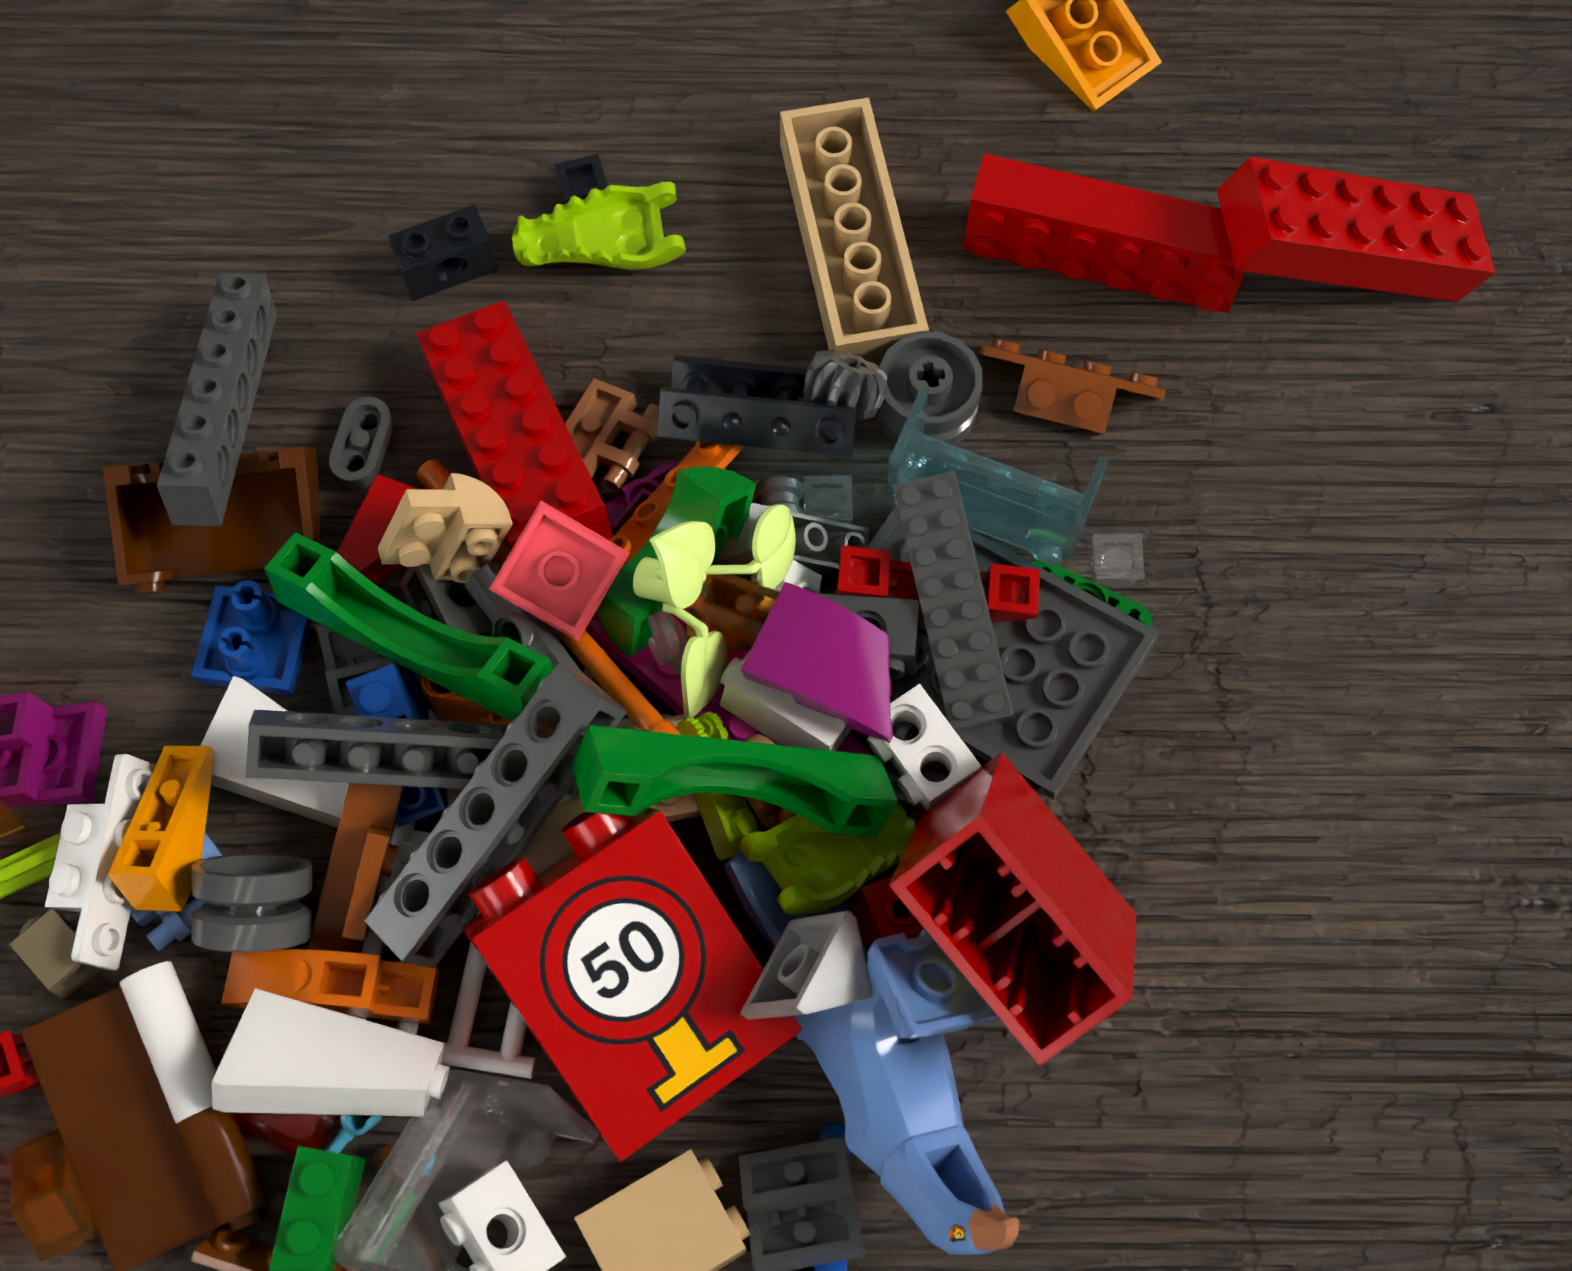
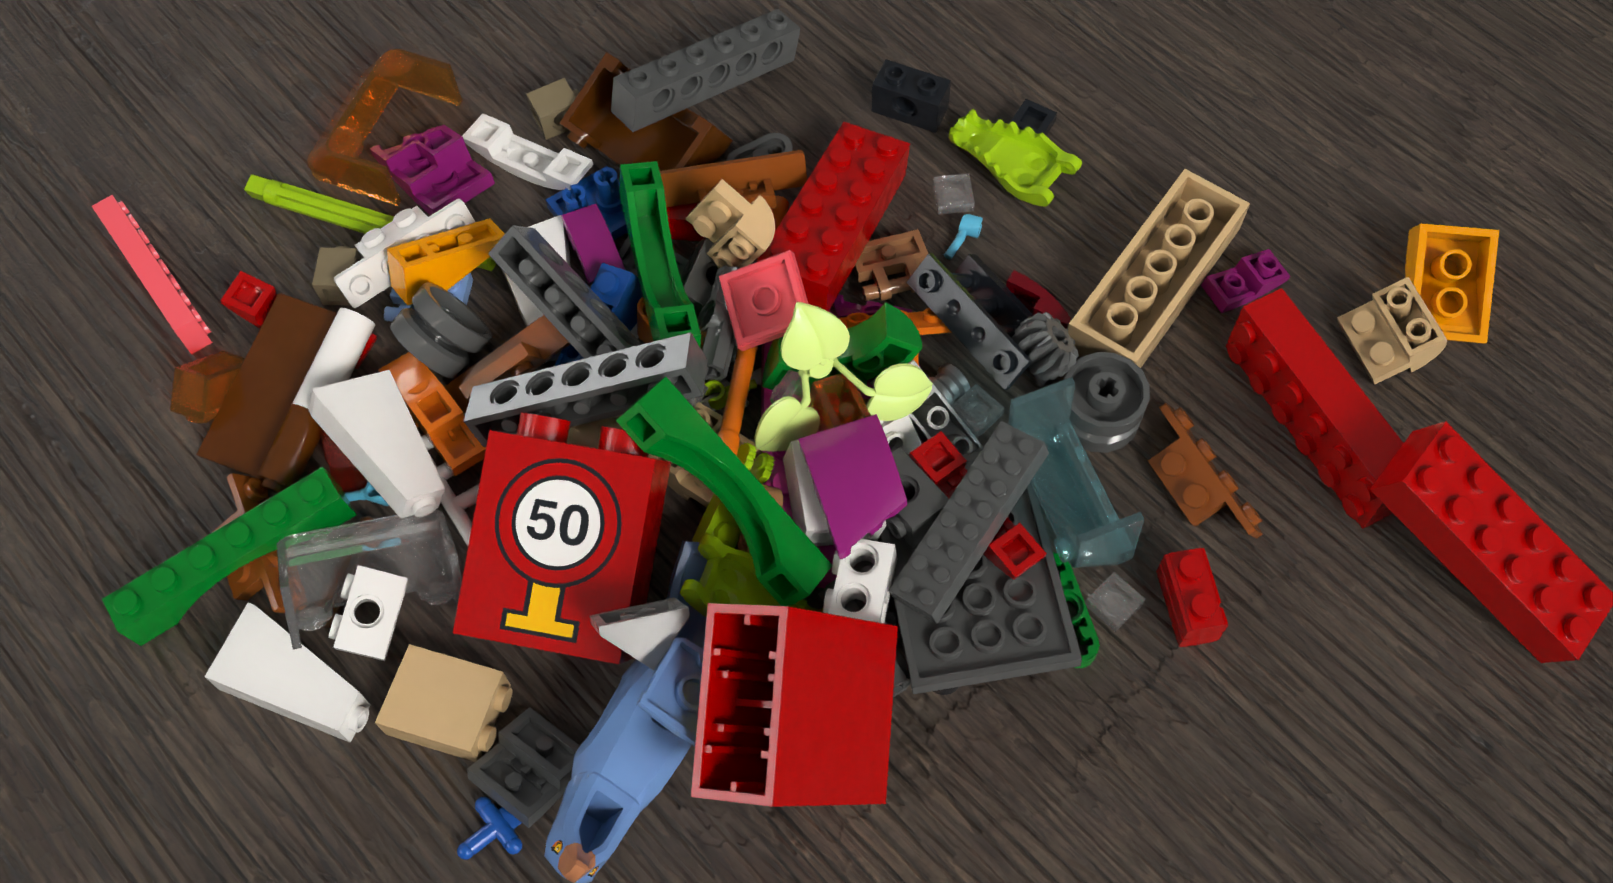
camera: 50 degrees right, 5 degrees down
(86, 575) = (550, 105): none -> dark tan brick
(116, 653) = (524, 158): none -> white slope
(300, 671) = (591, 240): none -> magenta slope
(378, 486) = (747, 176): none -> dark orange bracket
(586, 315) = (953, 194): none -> clear plate
(632, 335) = (969, 226): none -> medium azure hand
(776, 349) = (1036, 297): none -> dark red slope
(922, 173) = (1246, 281): none -> magenta slope
(1087, 115) = (1393, 332): none -> tan brick
(1173, 496) = (1191, 597): none -> red brick

